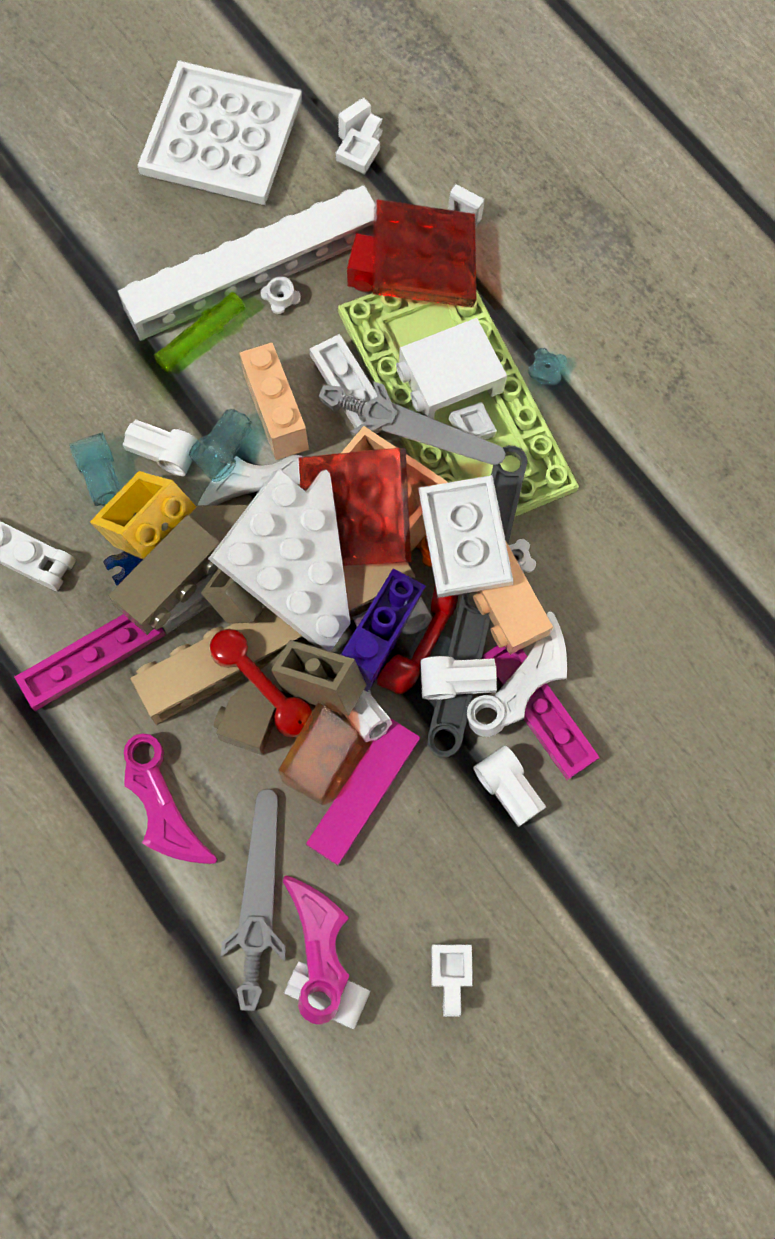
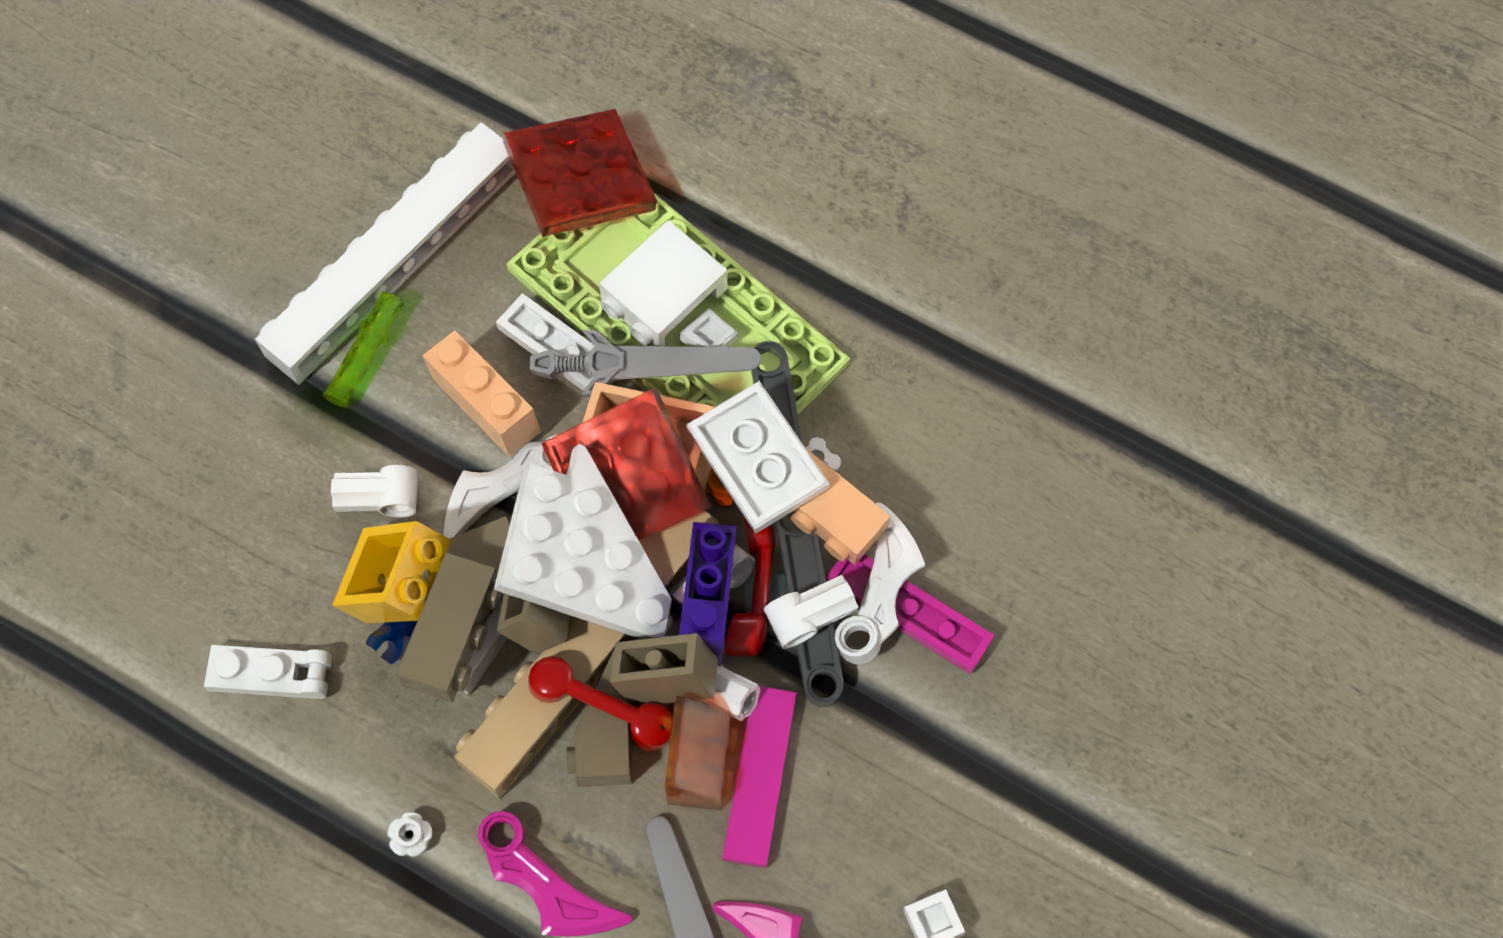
camera: 20 degrees left, 5 degrees down
(83, 660) = (390, 760): dark pink plate -> none
(83, 728) = (415, 845): none -> white plate
(95, 462) = (308, 537): clear light blue piece -> none
(216, 451) = (440, 471): clear light blue piece -> none
(220, 132) = (292, 122): white plate -> none
(277, 286) = (432, 265): white plate -> none
(353, 117) = (438, 54): white tile -> none
(361, 146) = (458, 81): white plate -> none
(361, 264) = (514, 208): red brick -> none
(466, 201) = (599, 99): white tile -> none
(504, 777) = (902, 698): white piece -> none
(547, 375) = (762, 253): clear light blue plate -> none

